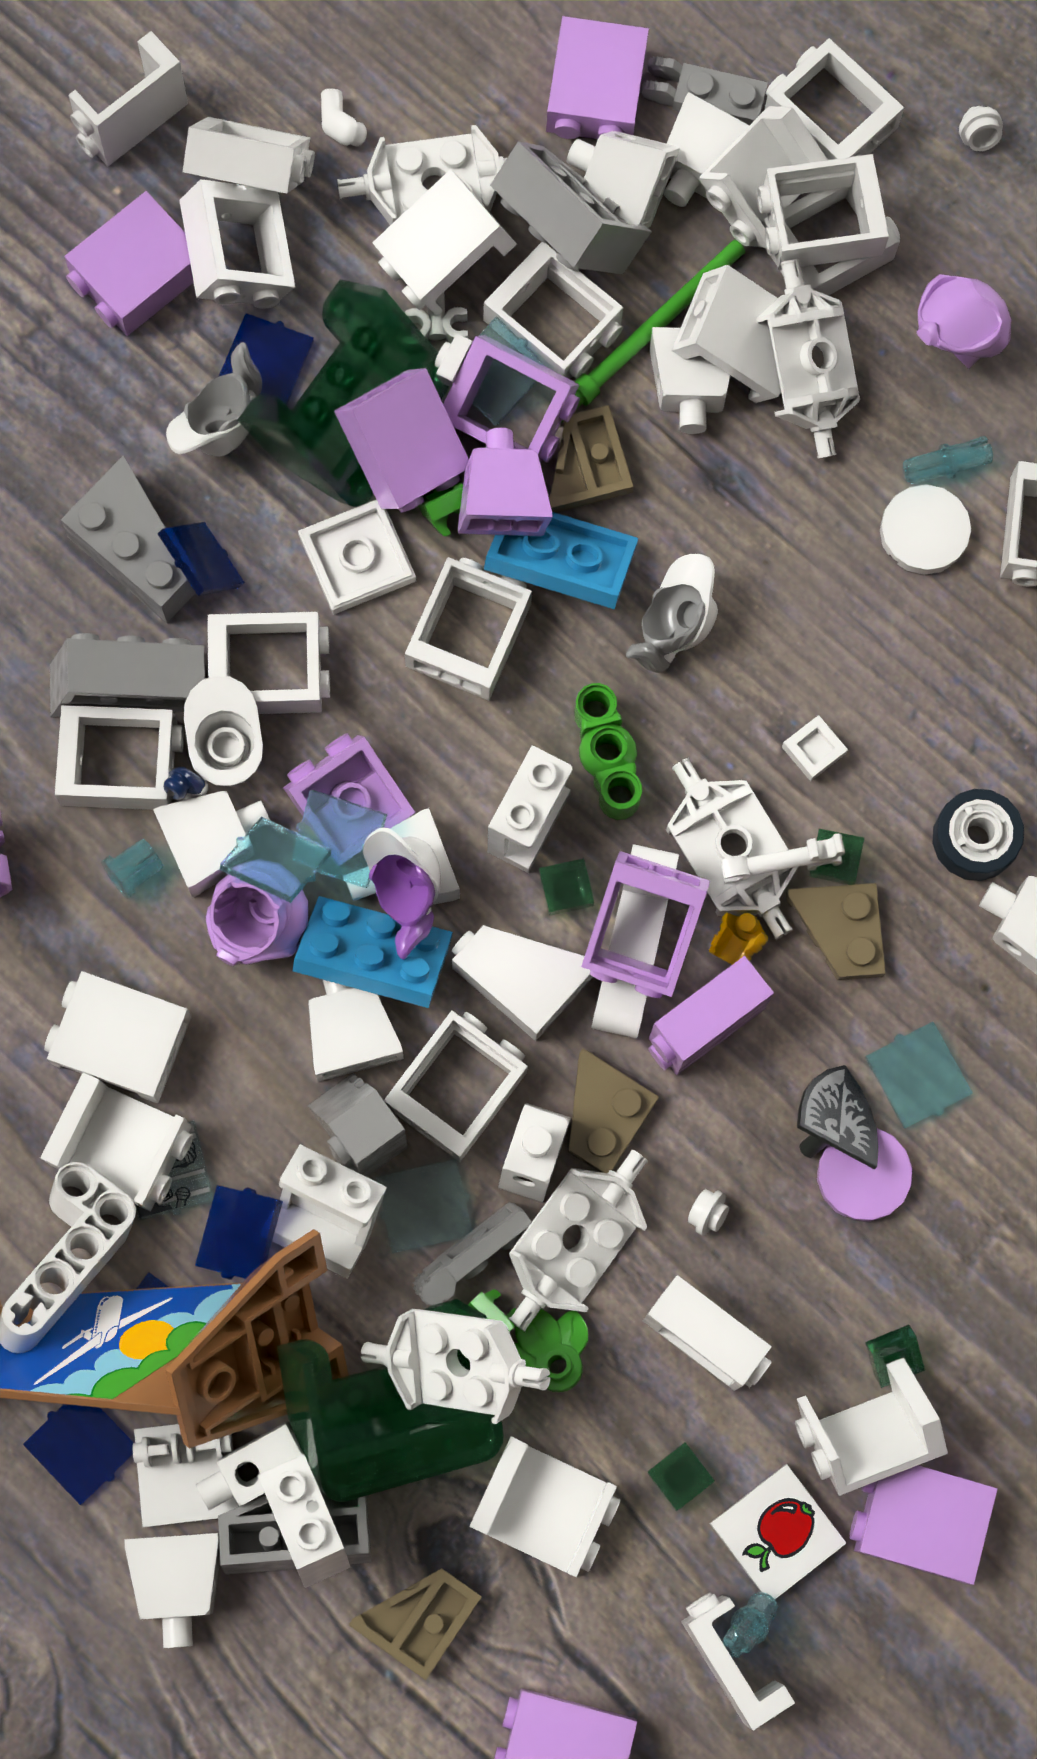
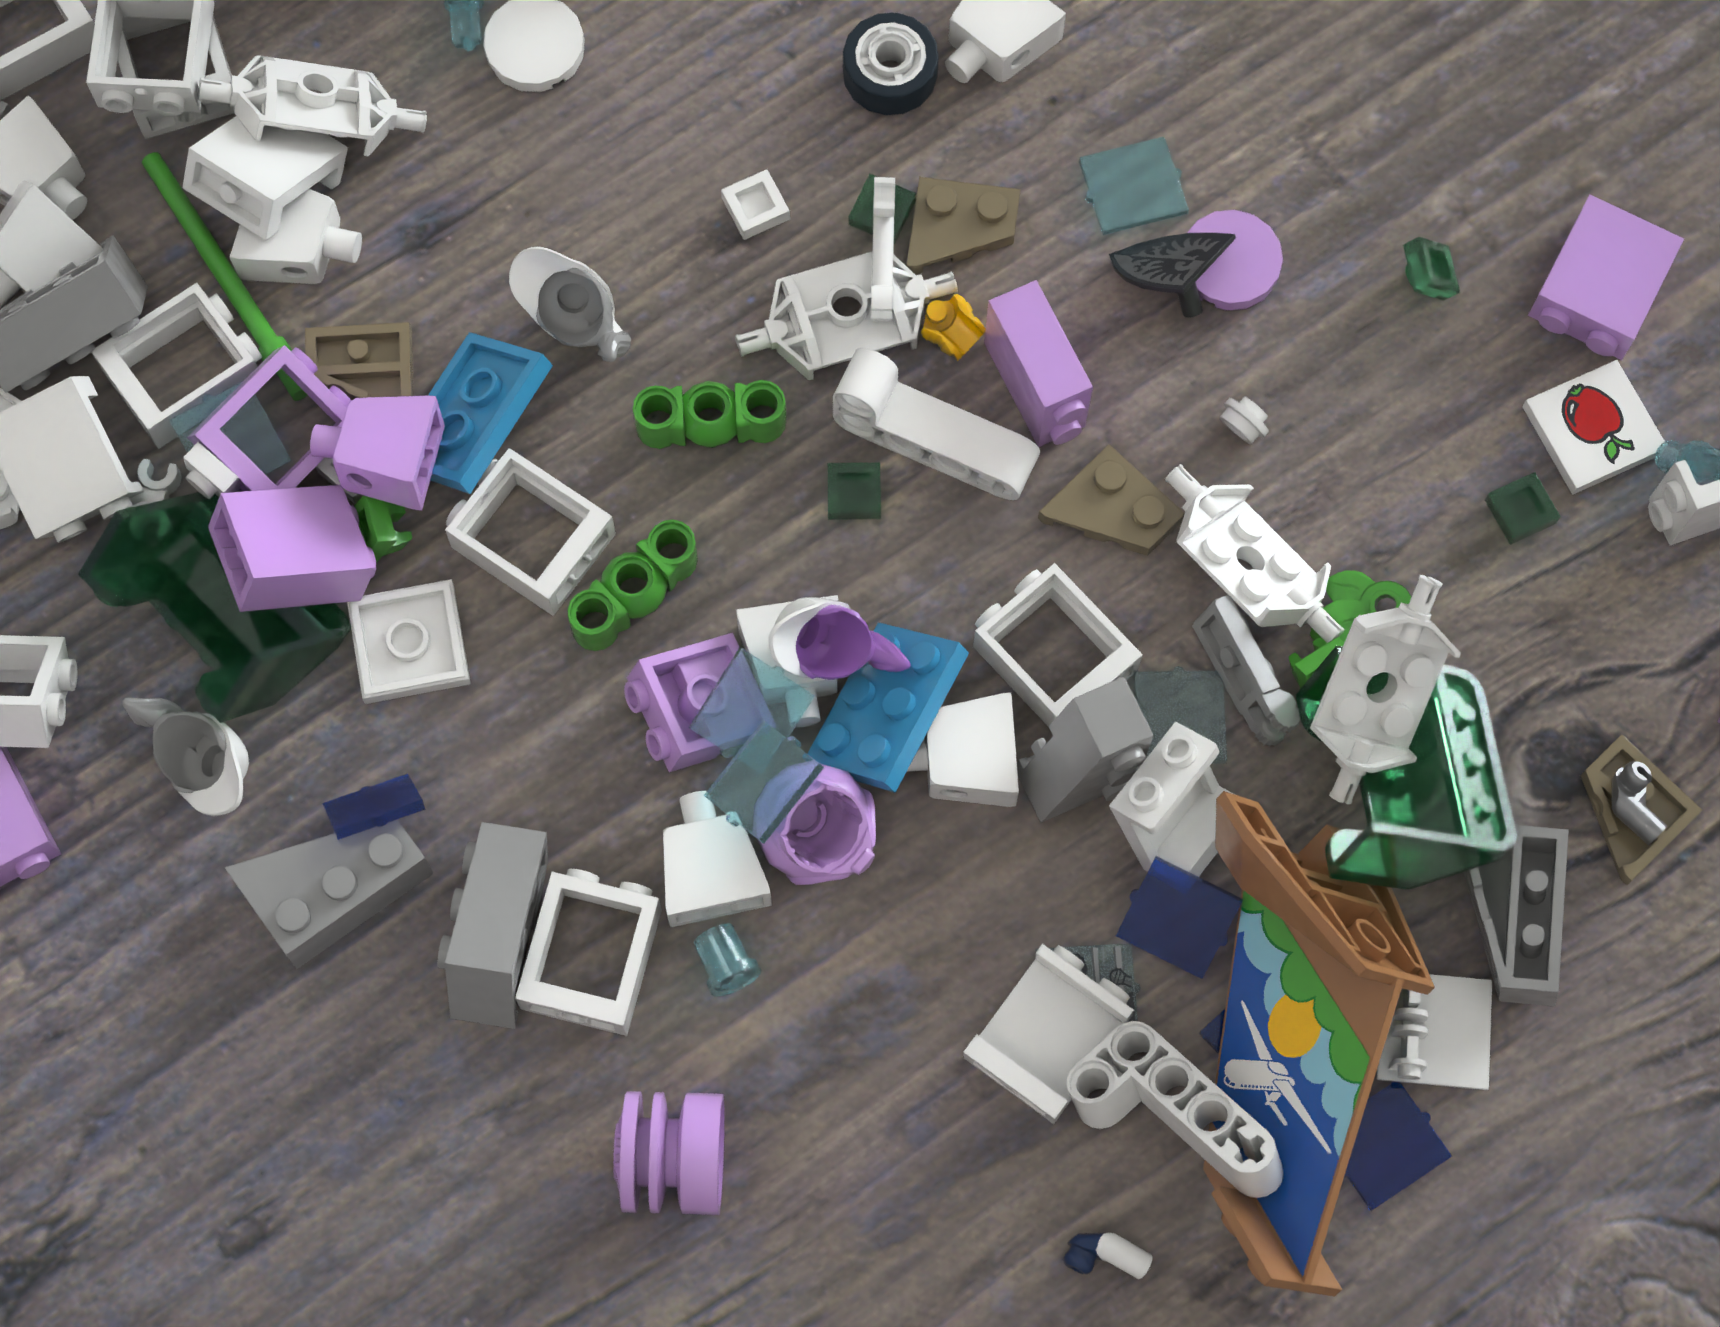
camera: 75 degrees left, 5 degrees down
(118, 1035) = (923, 1011): white panel -> none
(174, 1581) = (1554, 1059): white torso -> none
(185, 784) = (647, 874): dark blue arm -> none
(223, 731) = (592, 817): white piece -> none
(265, 1452) = (1452, 935): white torso -> none
(274, 701) = (473, 808): white window -> none
(275, 352) = (133, 674): clear blue piece -> none
(304, 1521) = (1528, 883): white window -> none
(413, 1611) = (1630, 801): none -> flat silver arm
(424, 706) = (646, 564): none -> bright green piece
(520, 976) = (948, 556): white slope -> none
(529, 809) = (764, 497): white panel -> none
(534, 1152) = (1147, 579): white torso -> none
(545, 1508) = (1537, 650): white panel -> none
(658, 880) = (920, 332): lavender window -> none
(709, 1335) = (1382, 440): white window -> none
(732, 180) = (53, 89): white panel -> none
(874, 1436) = (1513, 297): white panel -> none

